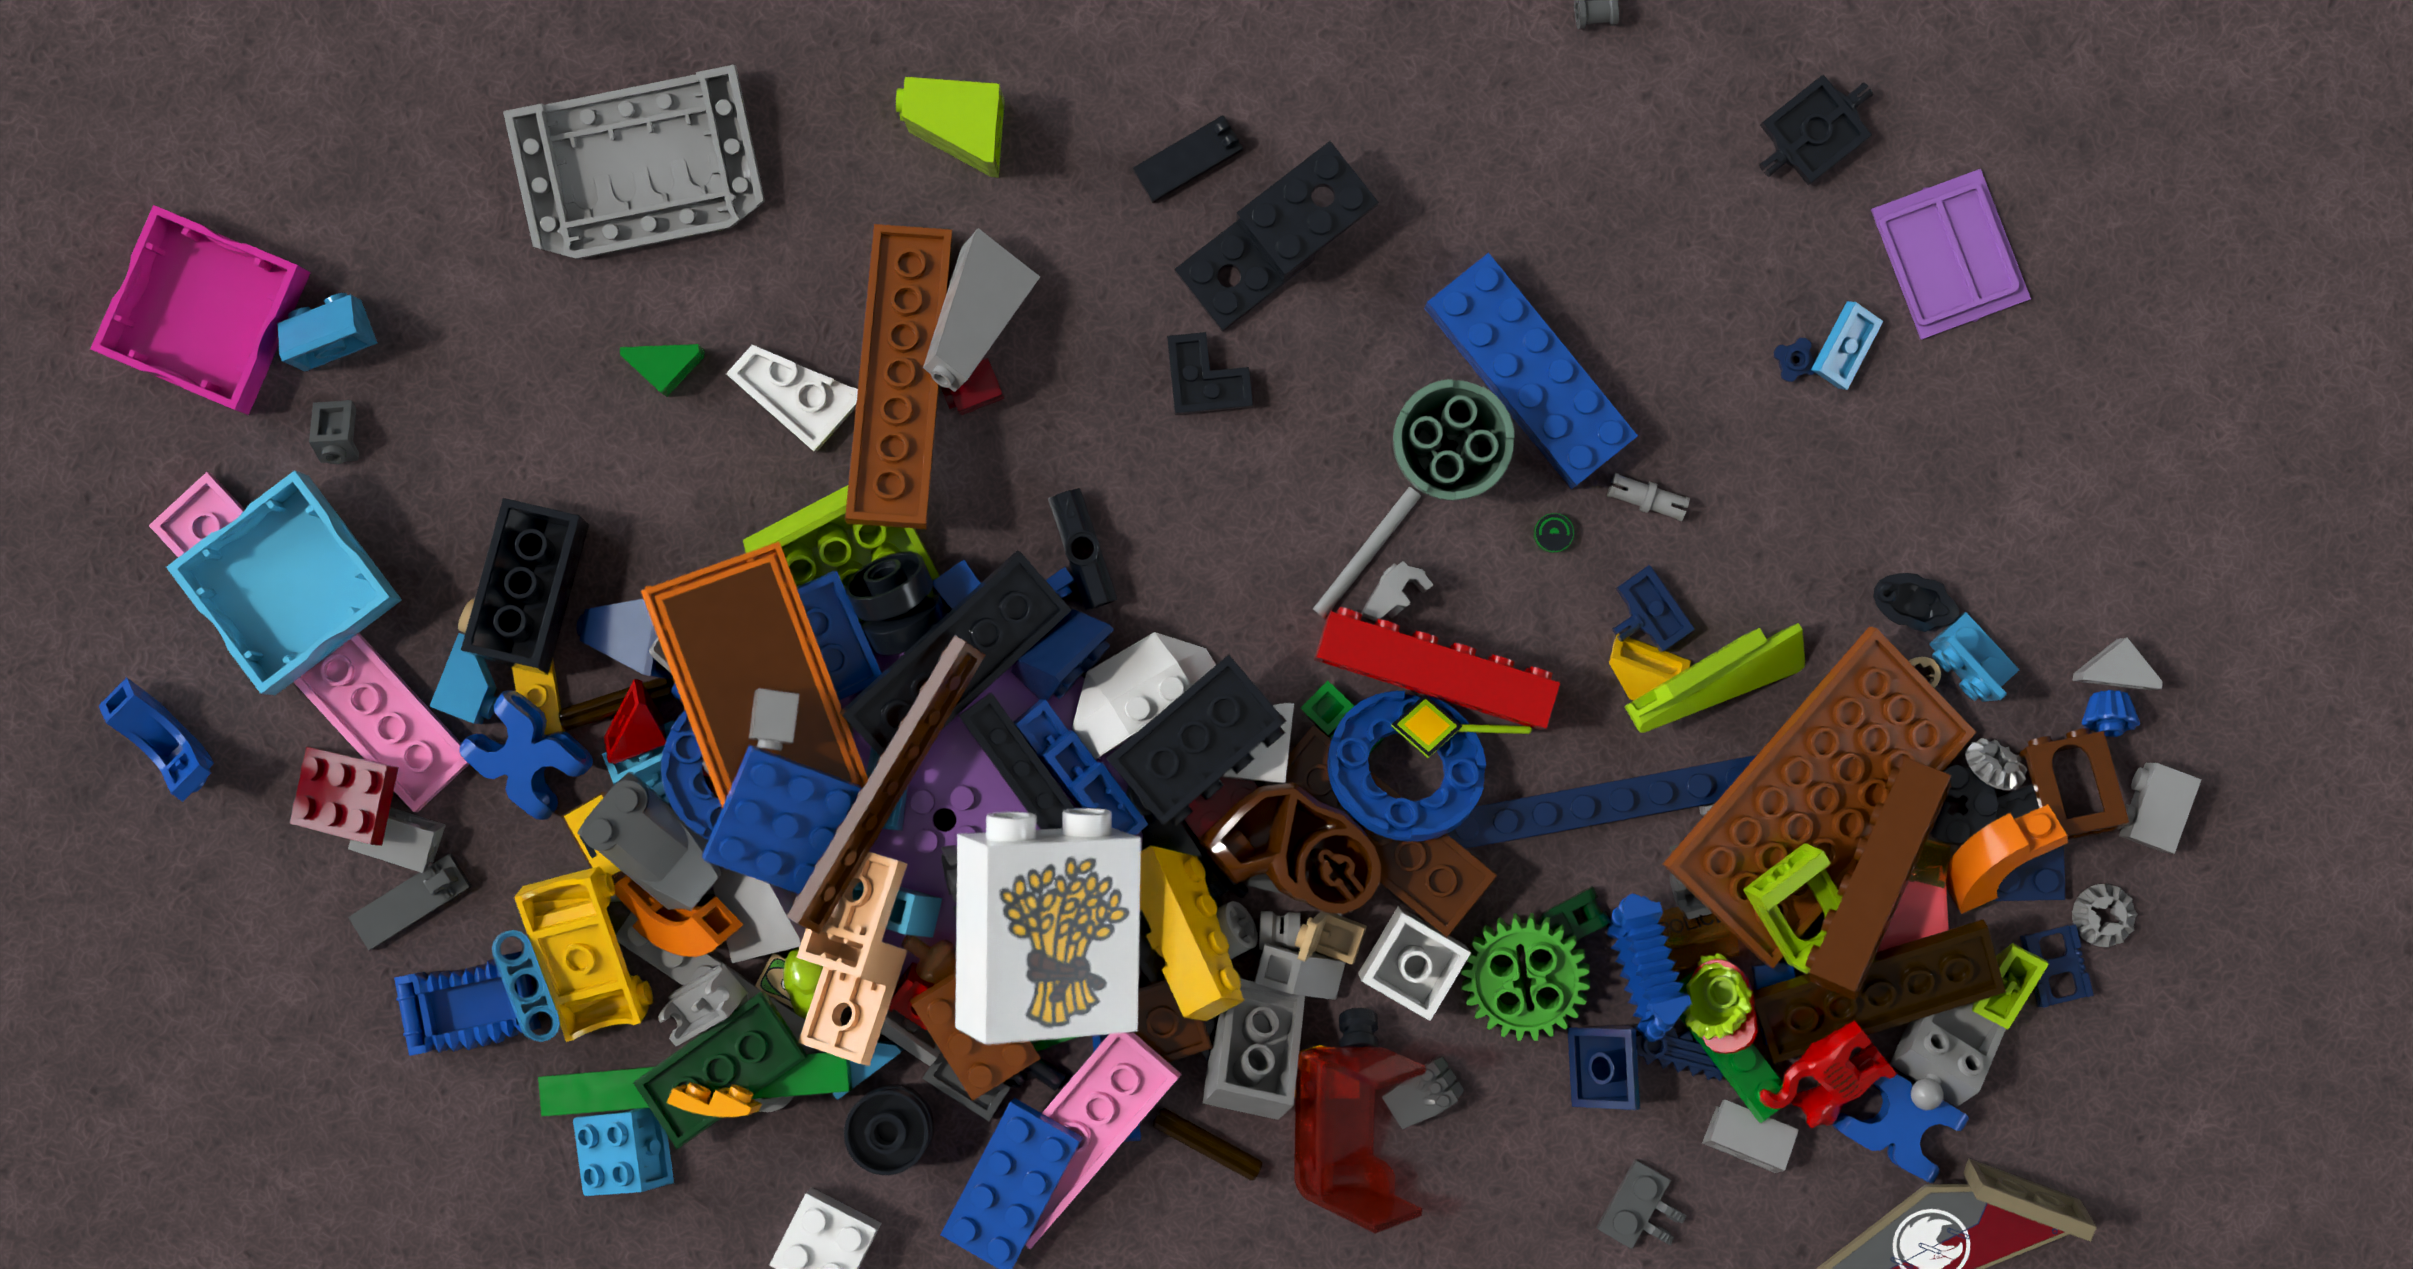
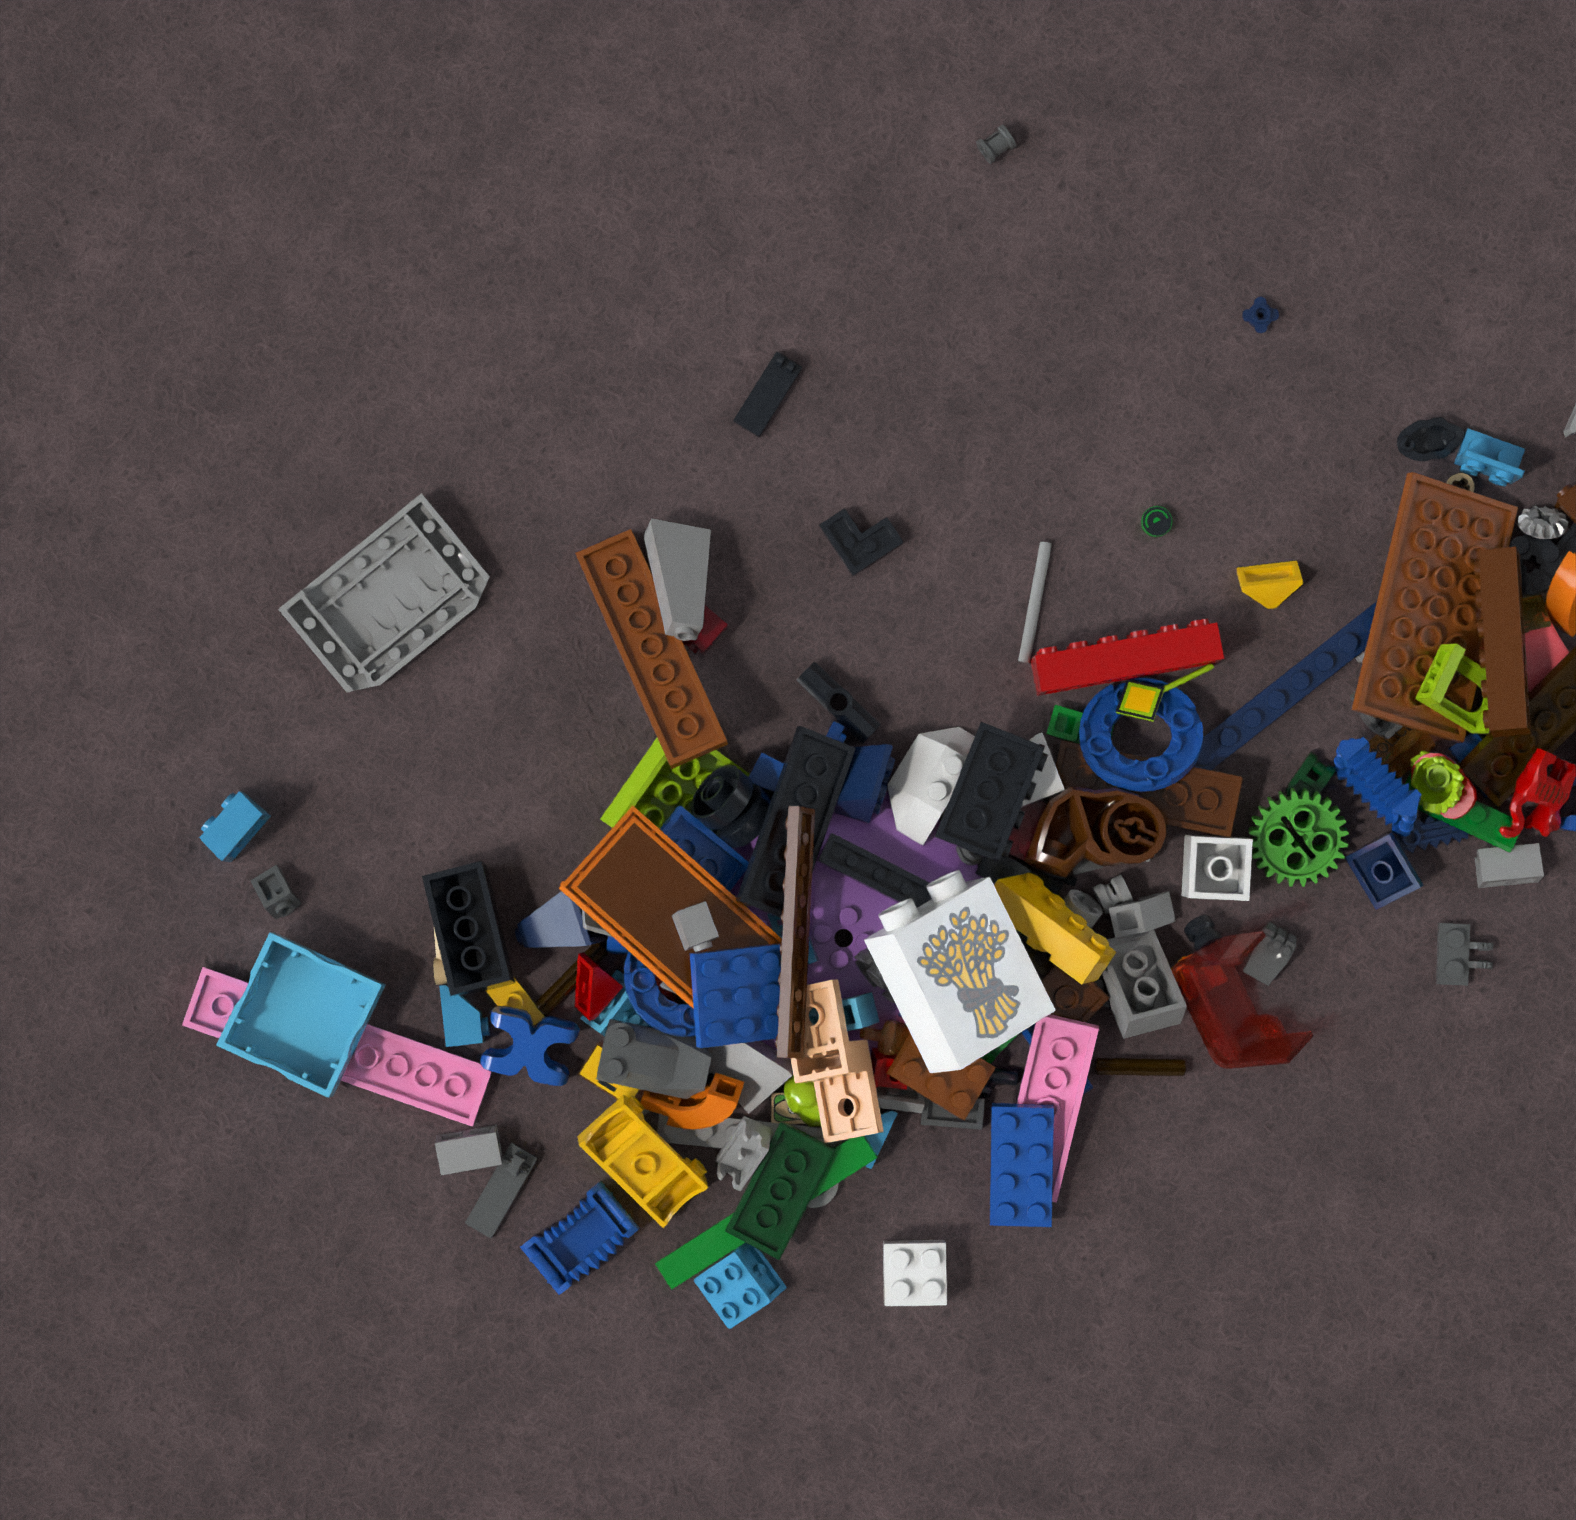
camera: 30 degrees left, 0 degrees up
(159, 736) = (269, 1167): blue arch -> none
(200, 310) = (138, 857): dark pink tile -> none
(344, 796) = (419, 1139): dark red plate -> none
(539, 1000) = (631, 1205): dark azure beam -> none
(664, 365) = (480, 727): green slope -> none
(724, 1103) = (798, 1208): light orange slope -> none
(798, 397) = (583, 700): white wing -> none
(889, 1129) = (917, 1170): black wheel -> none
(956, 118) = (595, 451): lime slope -> none
(1075, 768) = (914, 855): blue slope -> none
(1276, 236) = (858, 416): black bracket -> none
(1330, 936) = (1150, 879): tan bracket -> none
(1388, 594) = (1065, 623): light grey hand -> none
(1459, 414) = (1066, 475): sand green cone -> none
(1530, 370) = (1082, 418): blue brick -> none
(1648, 497) = (1208, 462): light grey pin -> none
(1652, 610) = (1252, 540): dark blue plate -> none
(1725, 674) = (1324, 559): lime wedge -> none
(1815, 129) = (1191, 148): black plate -> none
(1847, 345) = (1290, 286): dark azure plate -> none
(1950, 254) = (1328, 186): medium lavender piece -> none

